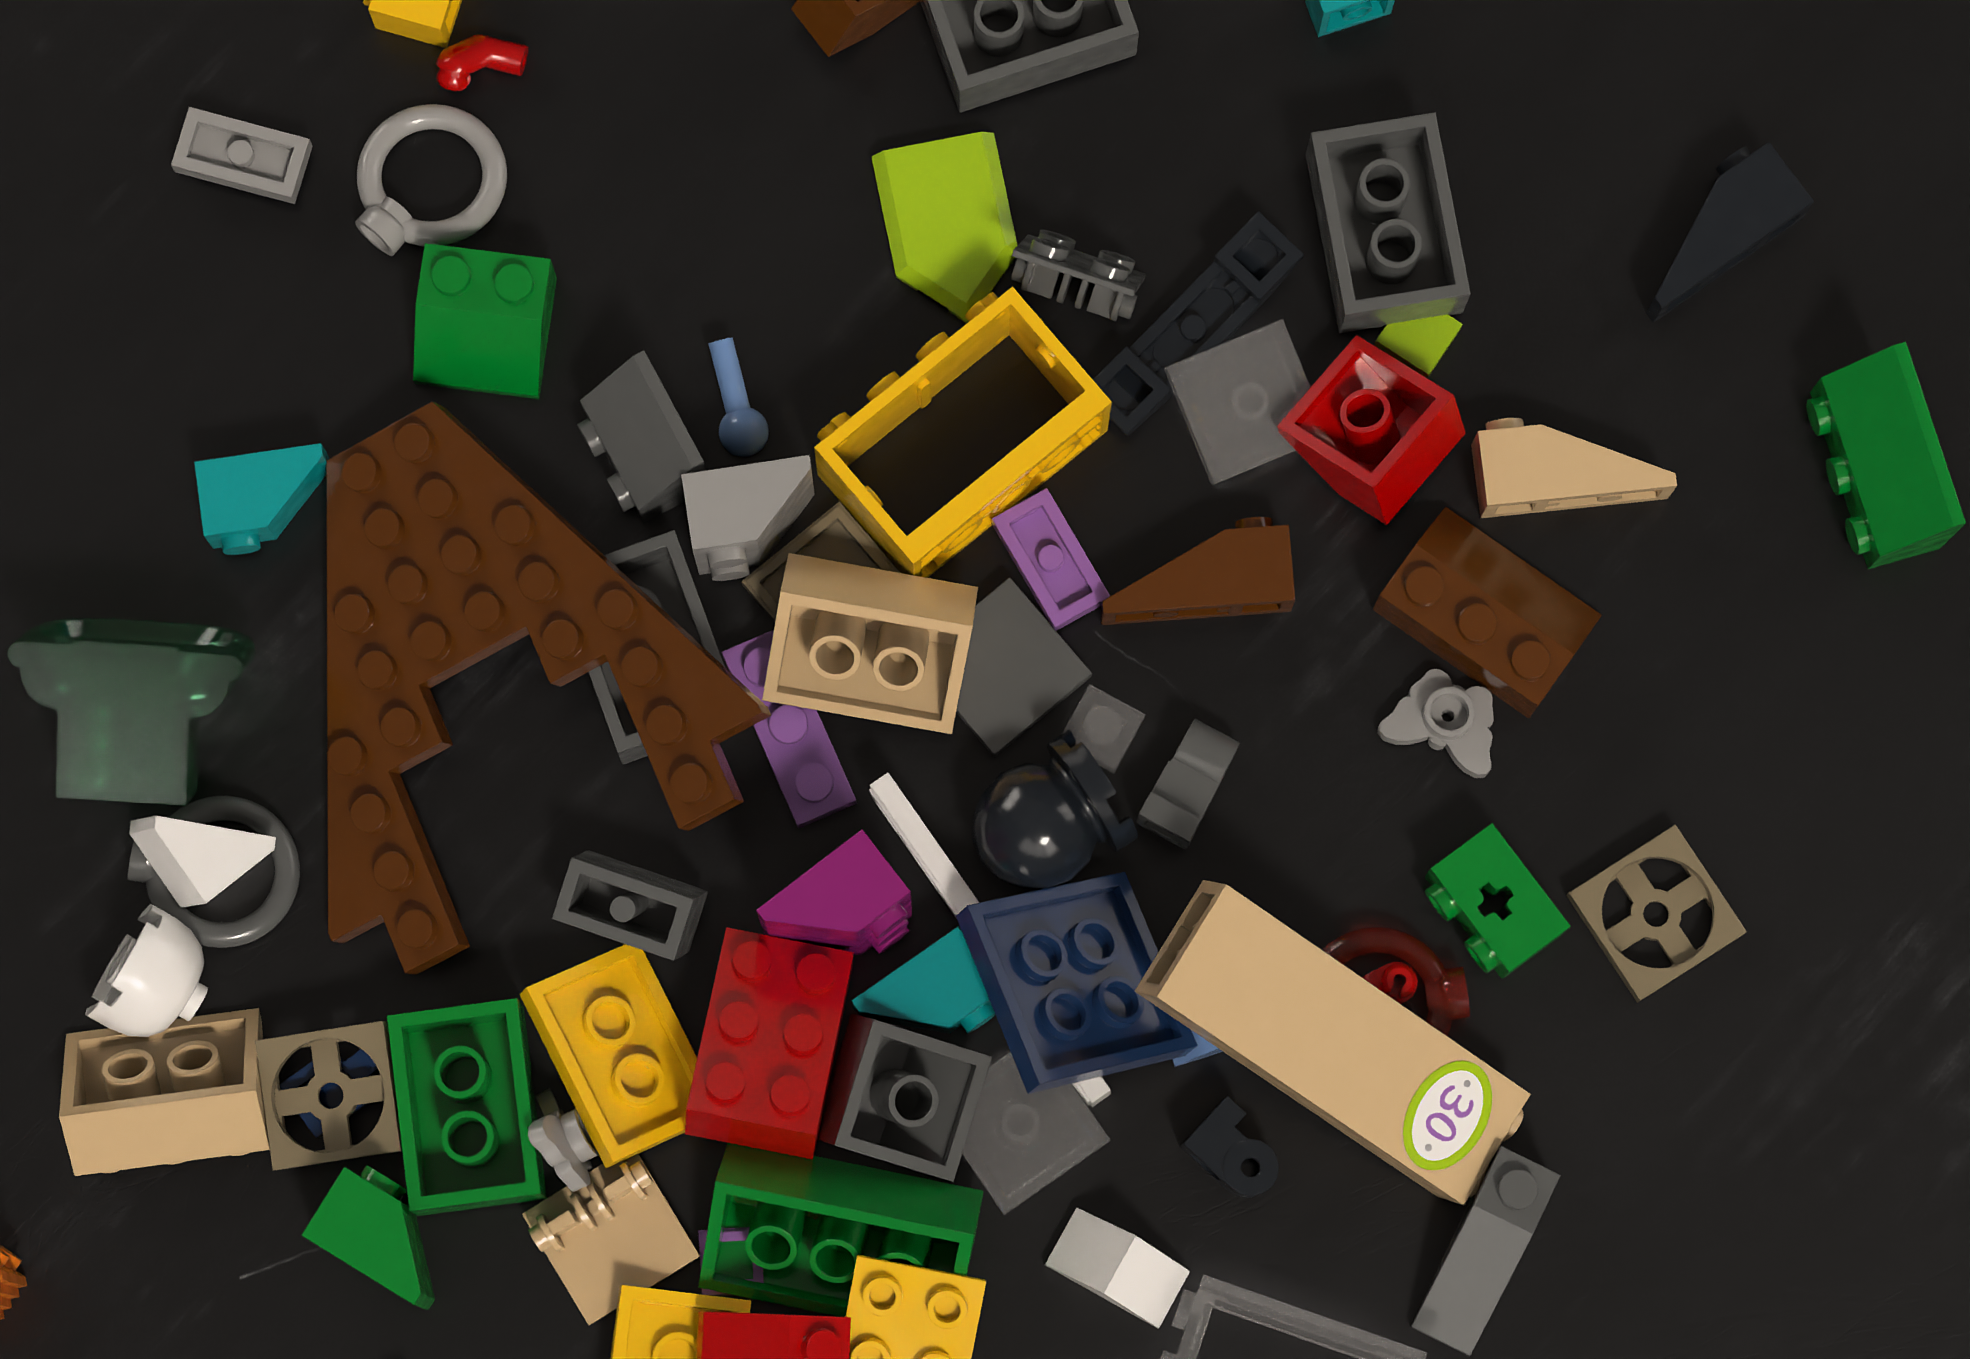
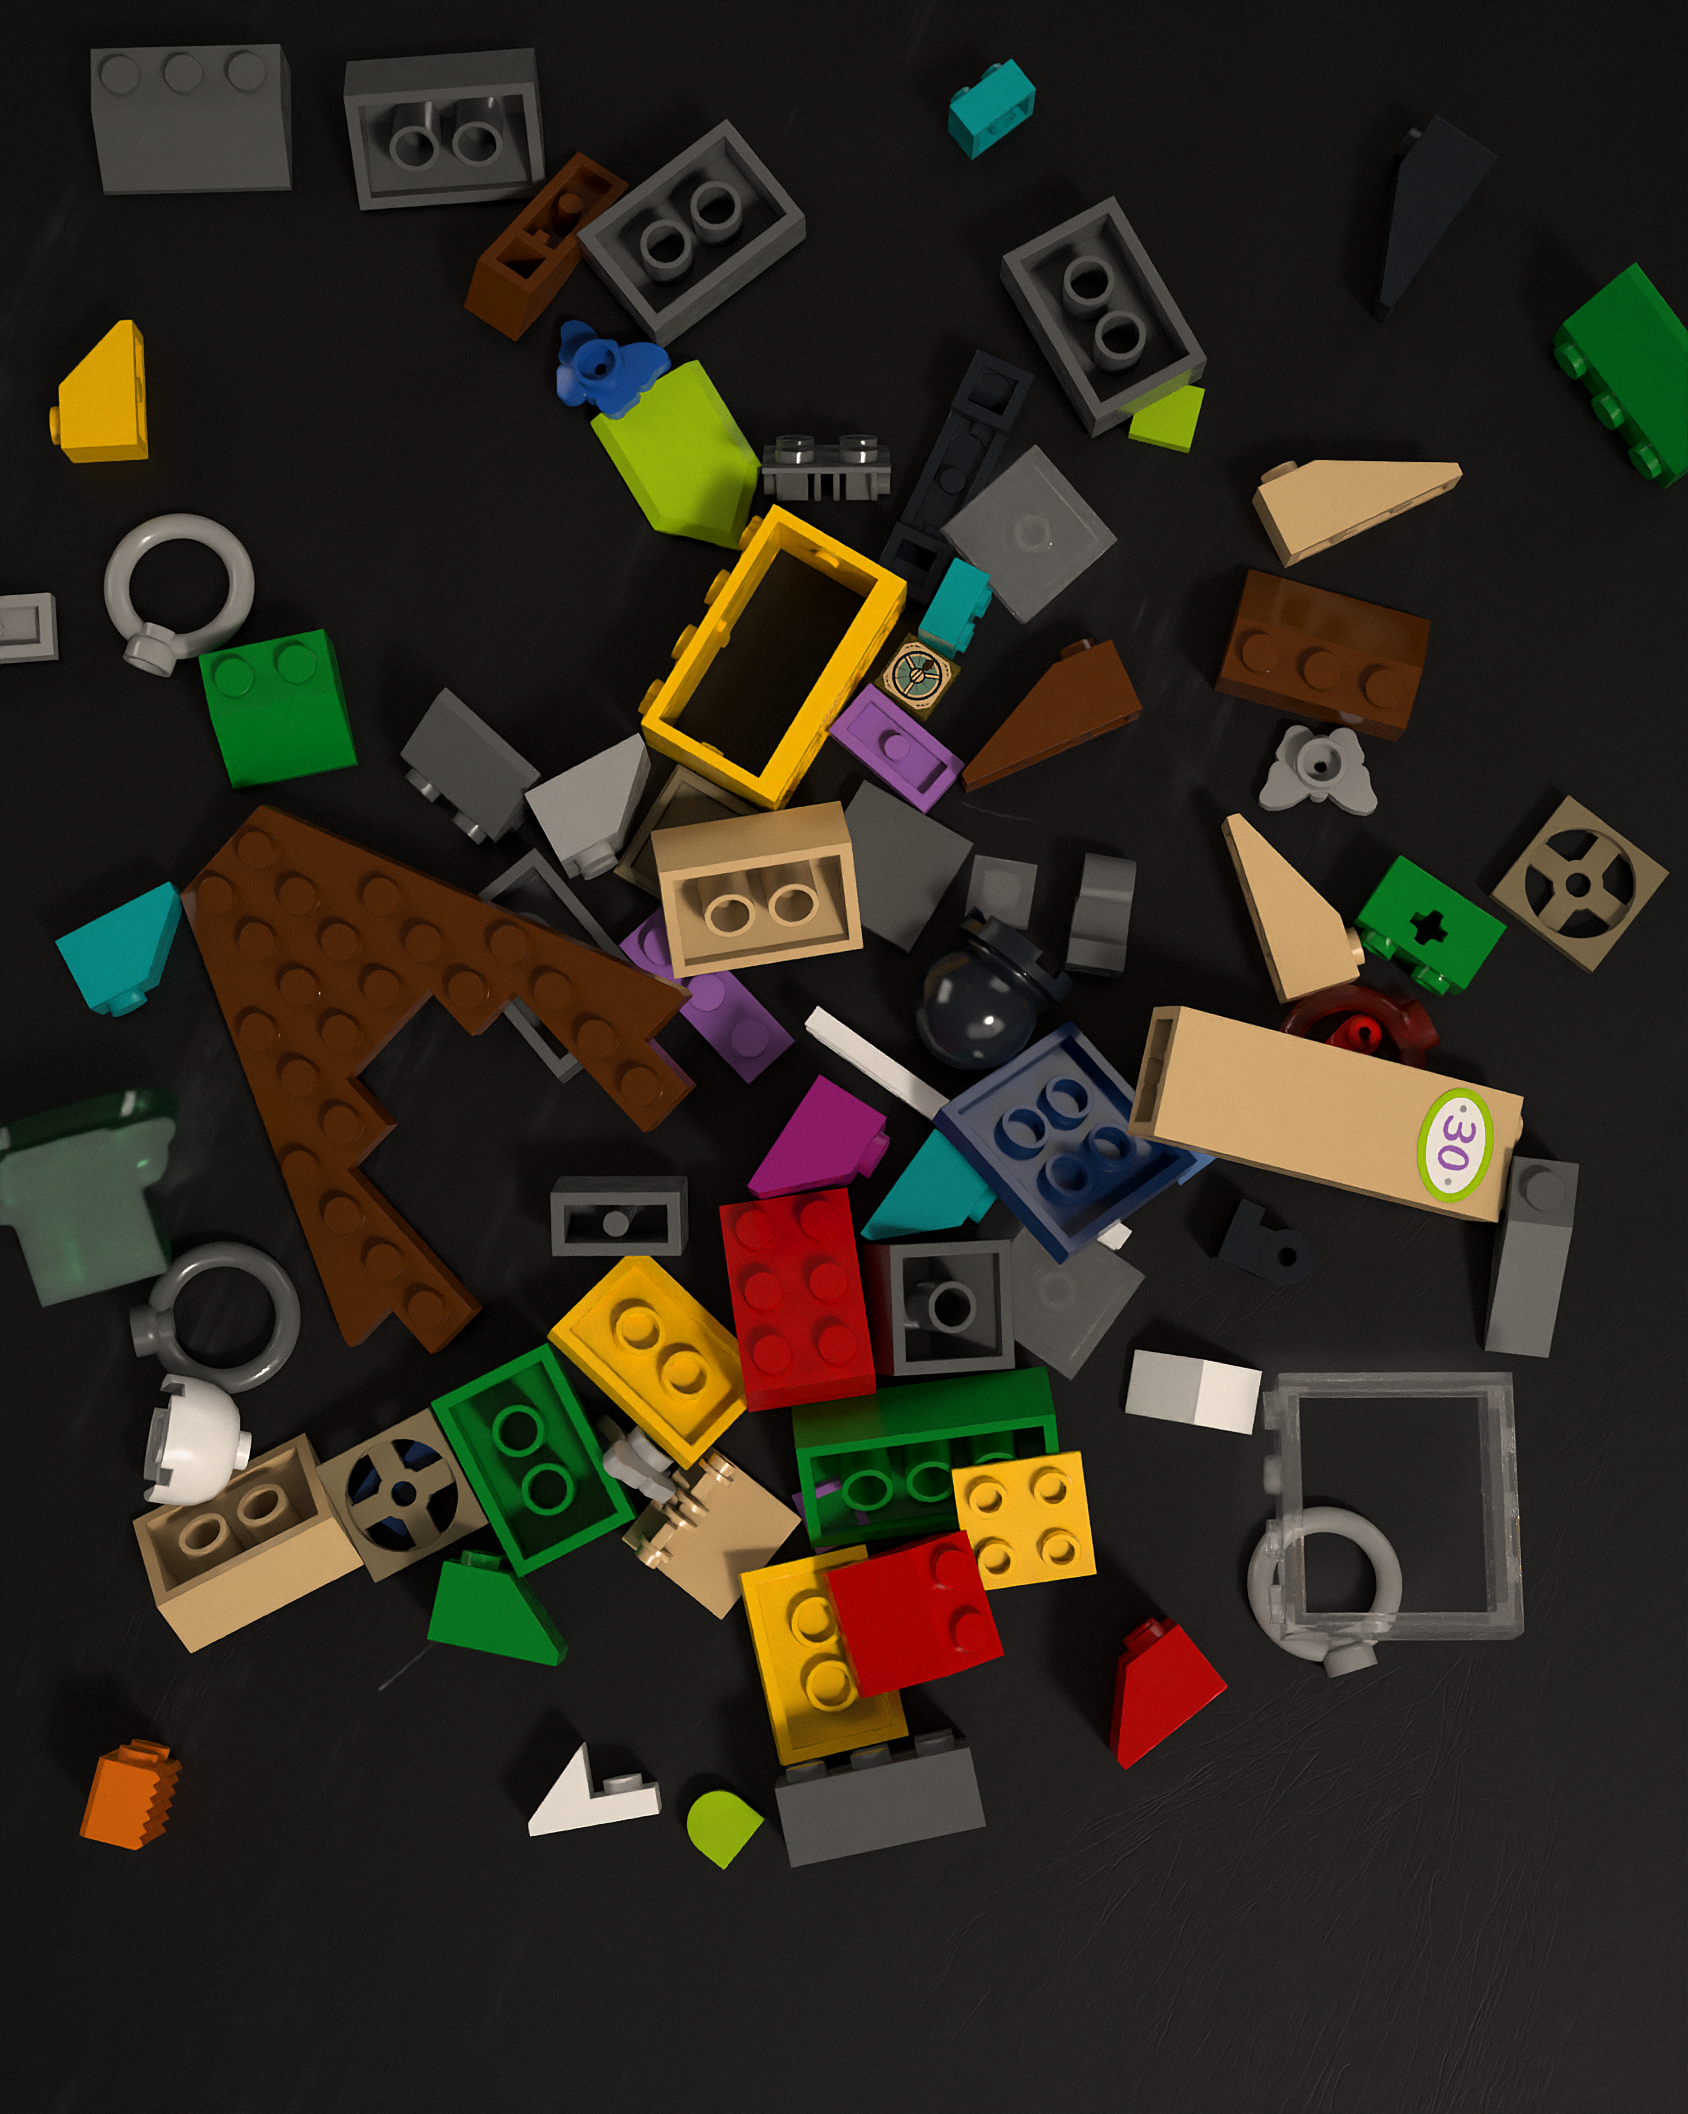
camera: 15 degrees left, 5 degrees up
(197, 858) = (197, 1316): white slope -> none
(476, 53) = (178, 454): red arm -> none
(742, 429) = (561, 725): medium blue bar -> none
(922, 119) = (627, 368): none -> blue animal
(1094, 499) = (917, 677): none -> tile
(1151, 446) = (958, 600): none -> teal piece
(1370, 856) = (1293, 922): none -> tan slope
(1373, 428) = (1157, 518): red slope -> none

